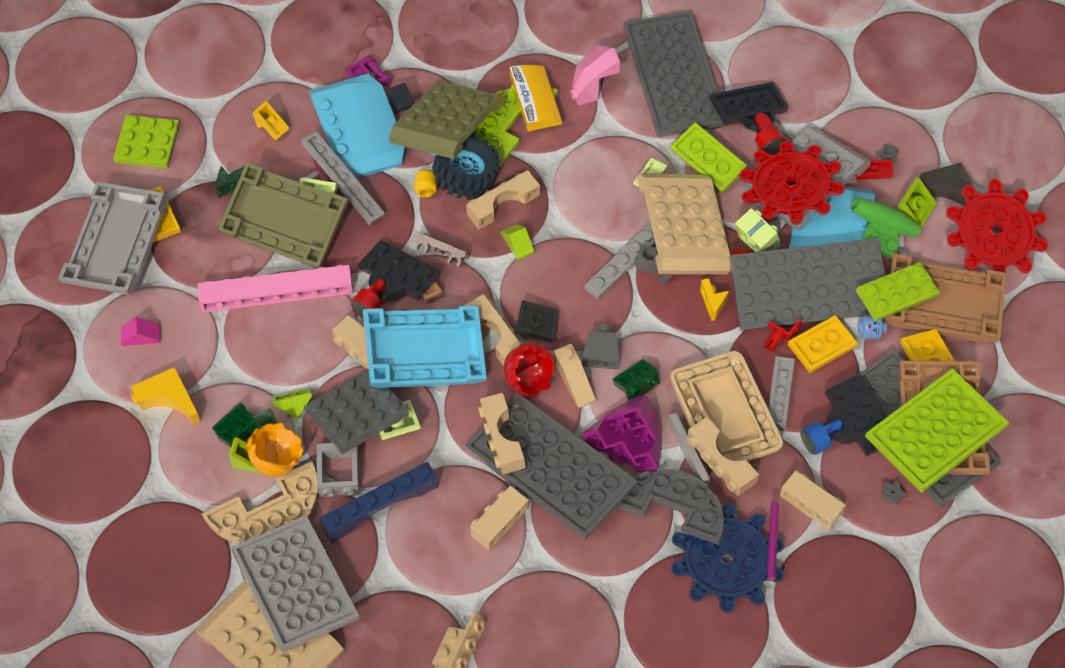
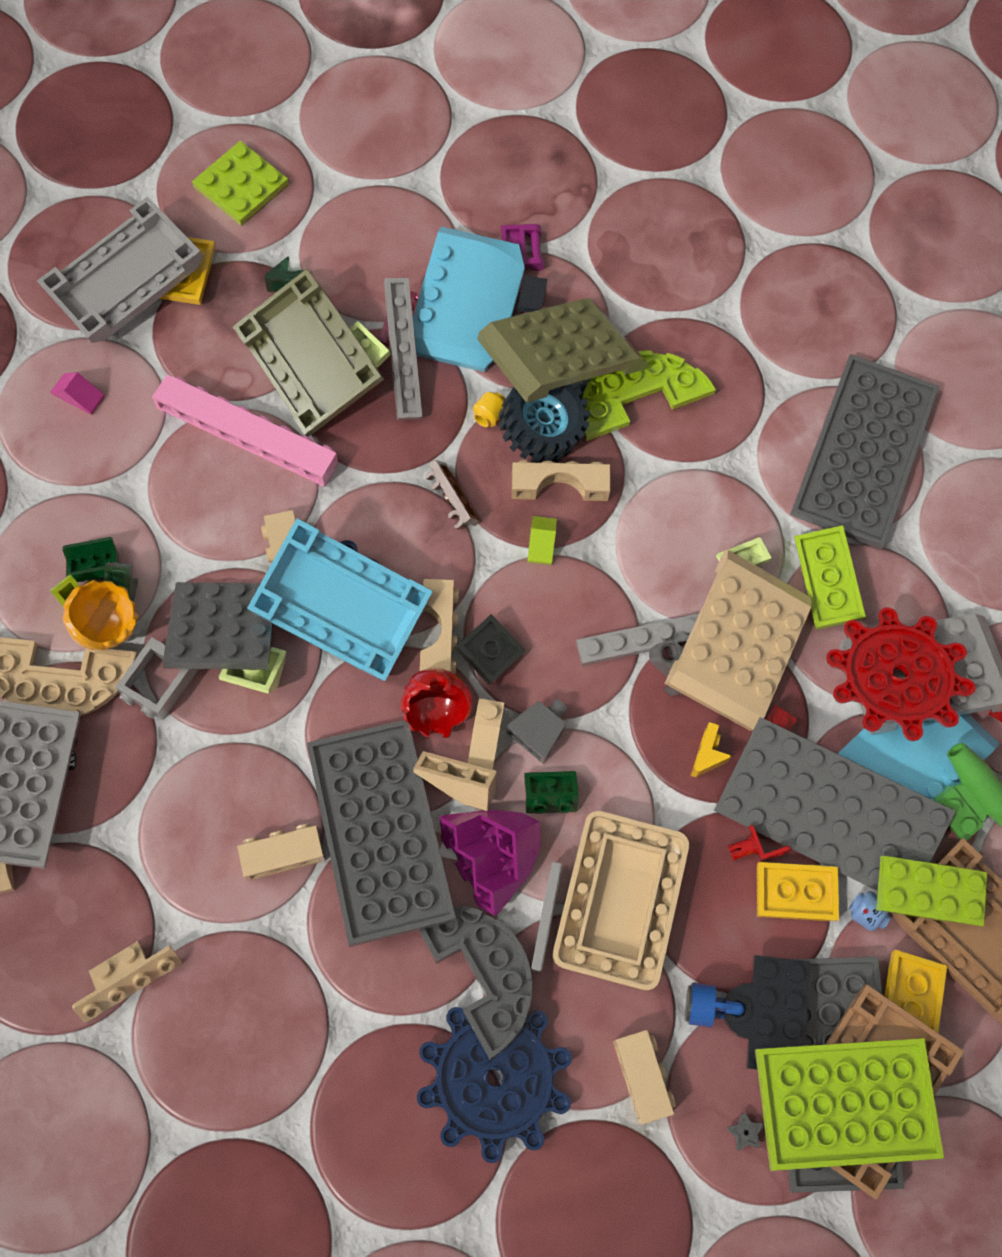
camera: 30 degrees right, 10 degrees up
(164, 391) = (54, 473): yellow arch -> none
(268, 118) = (378, 236): yellow slope -> none
(292, 402) = (169, 569): lime slope -> none
(350, 515) = (206, 748): dark blue arch -> none
(390, 276) = (377, 494): black plate -> none
(432, 293) = (403, 536): medium nougat plate -> none
(508, 453) = (361, 728): tan arch -> none
(534, 97) = (682, 382): yellow slope -> none
(579, 405) = (460, 780): none -> tan slope
(596, 64) = (774, 388): bright pink brick -> none
(737, 474) = (572, 993): tan arch -> none
(756, 111) = (924, 553): black plate -> none
(757, 232) = (815, 709): yellowish green container -> none
(773, 531) = (560, 1094): magenta bar -> none
(781, 390) = (706, 916): light grey tile -> none

